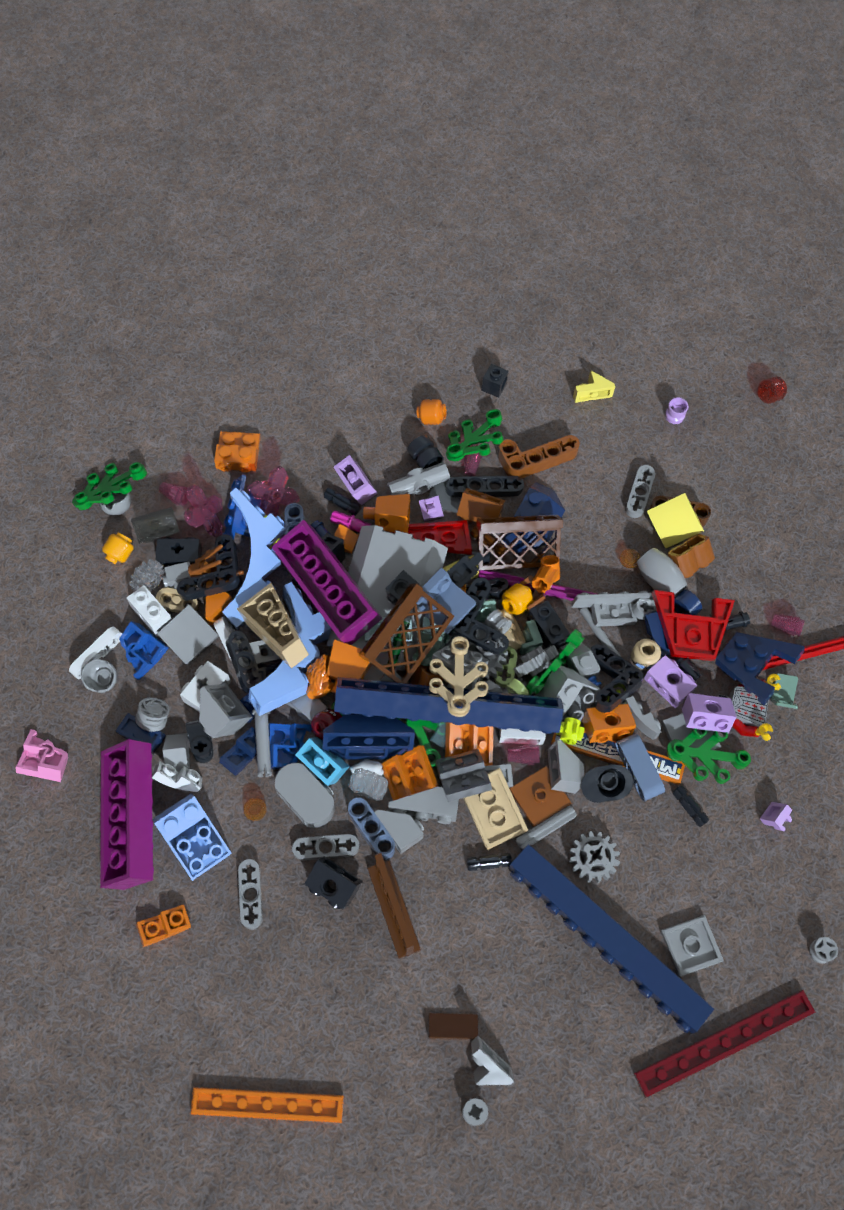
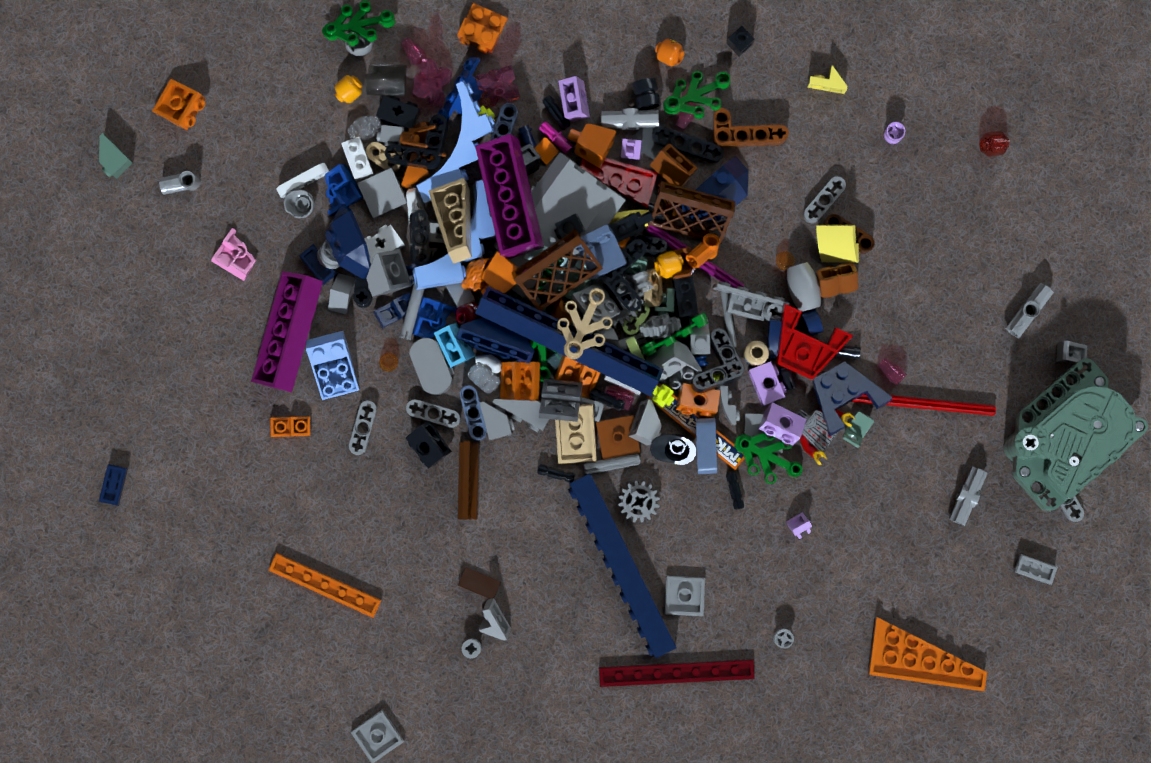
camera: 25 degrees right, 20 degrees up
(168, 693) = (348, 242): none -> dark blue wedge
(184, 780) = (339, 318): white slope -> none
(512, 757) = (607, 399): none -> black axle

